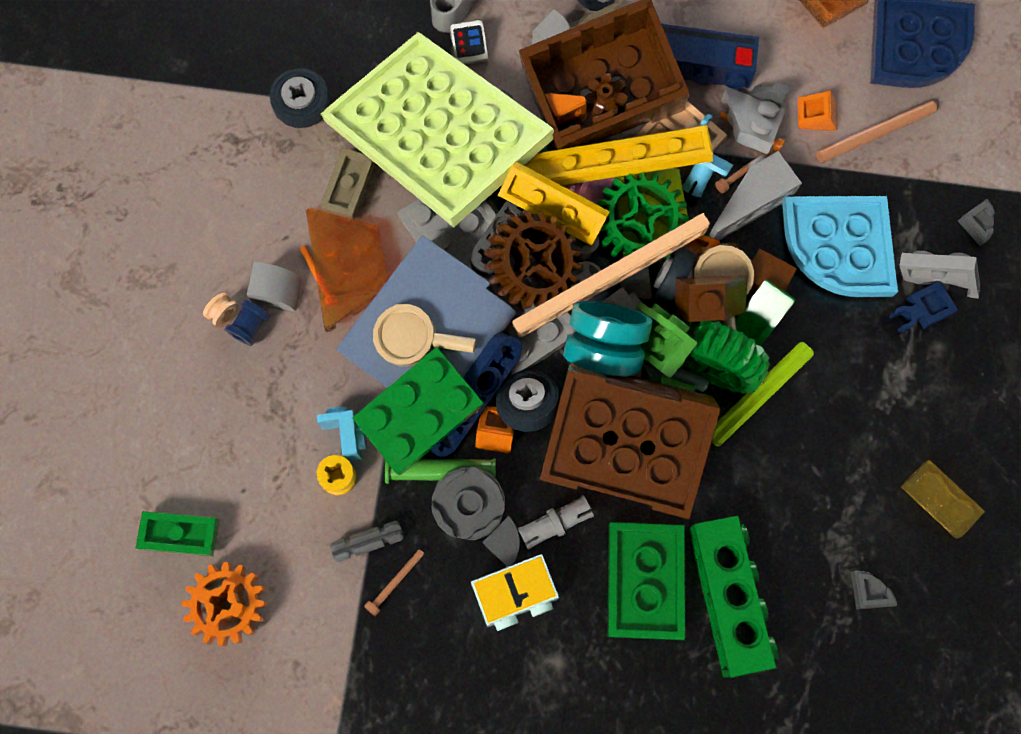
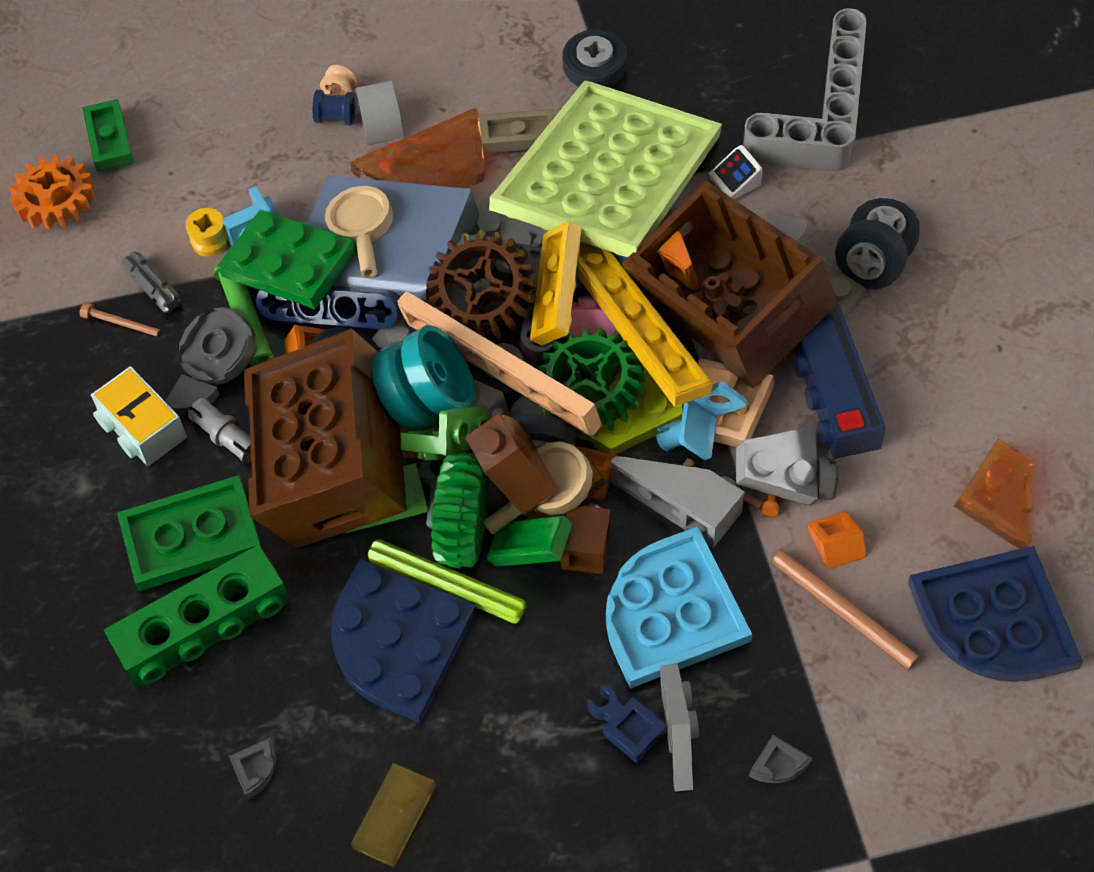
camera: 75 degrees right, 15 degrees down
(795, 448) = (396, 638): none -> dark blue plate

